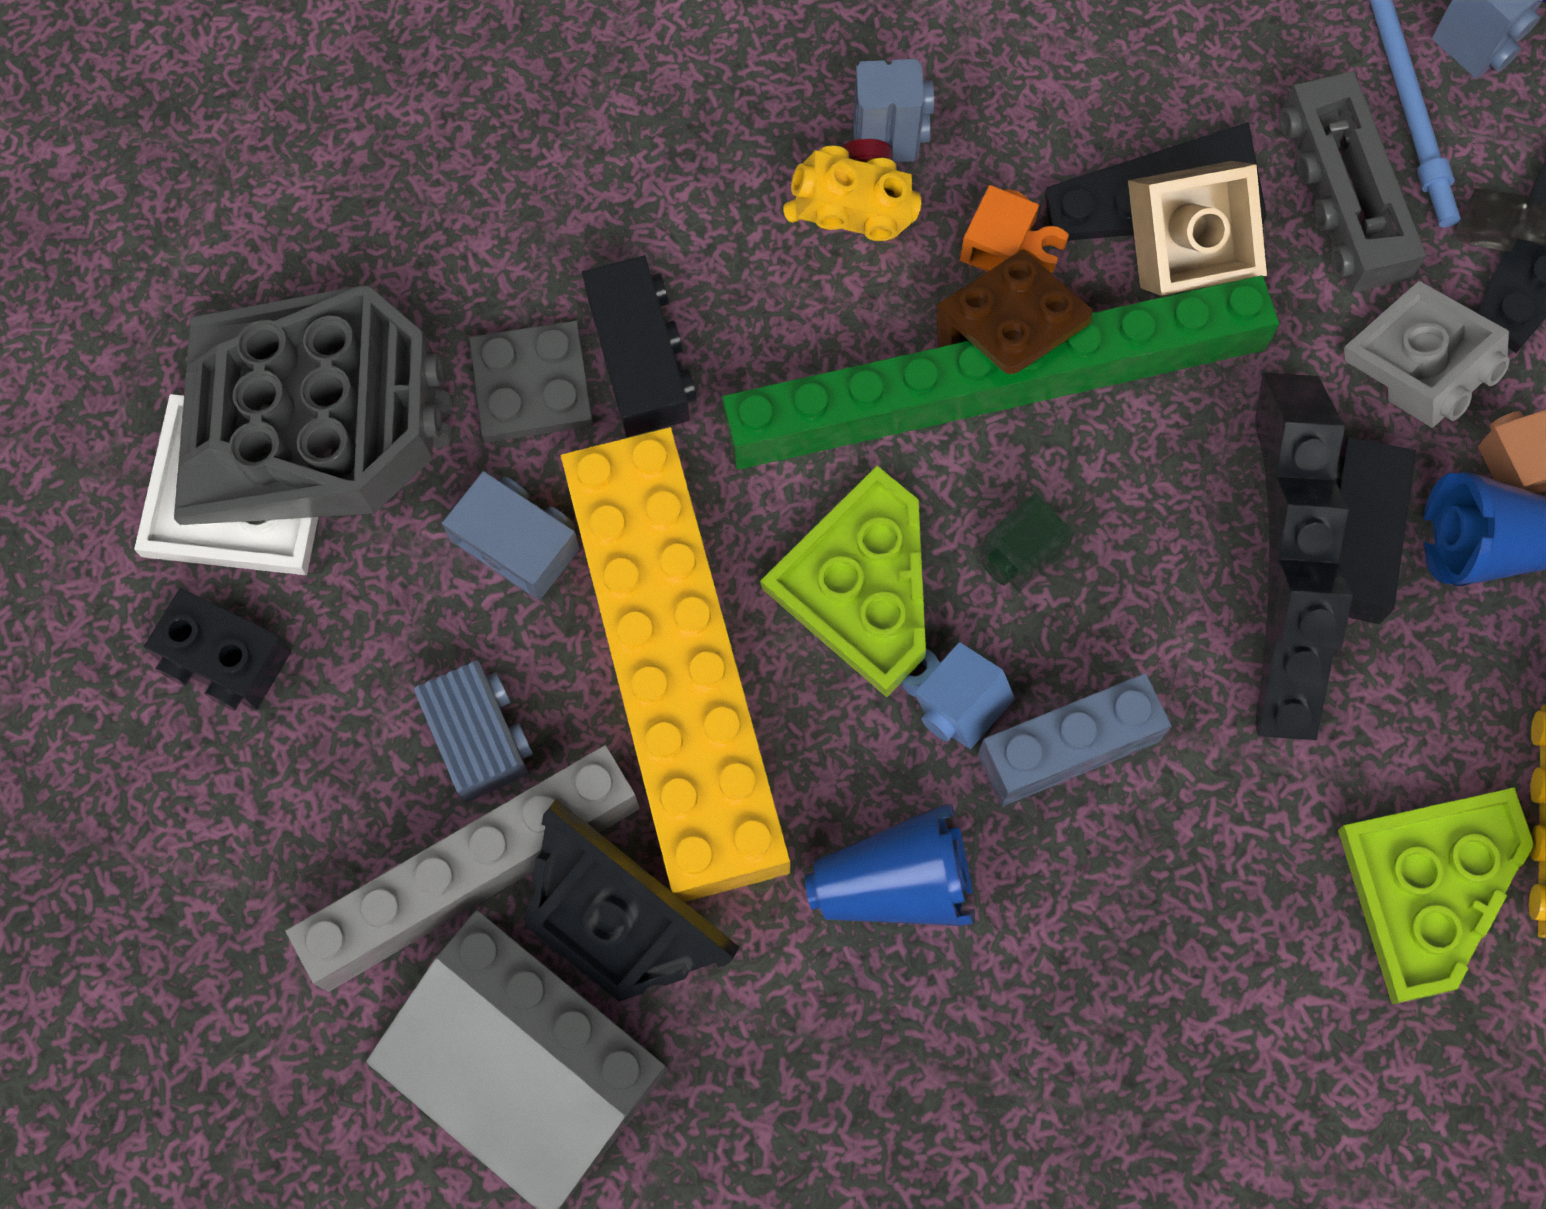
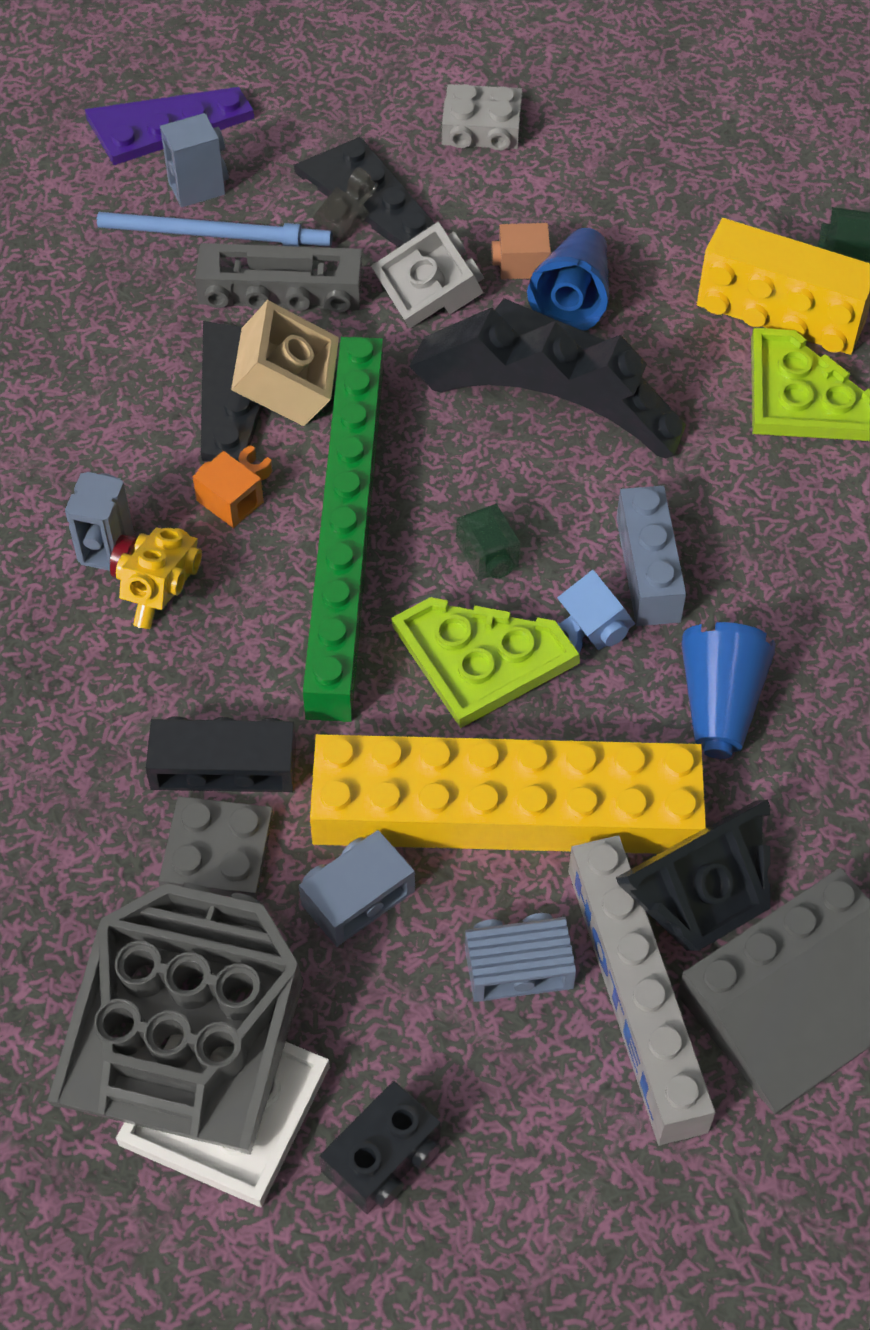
camera: 75 degrees left, 15 degrees down
(1012, 313) = (310, 487): reddish brown bracket -> none

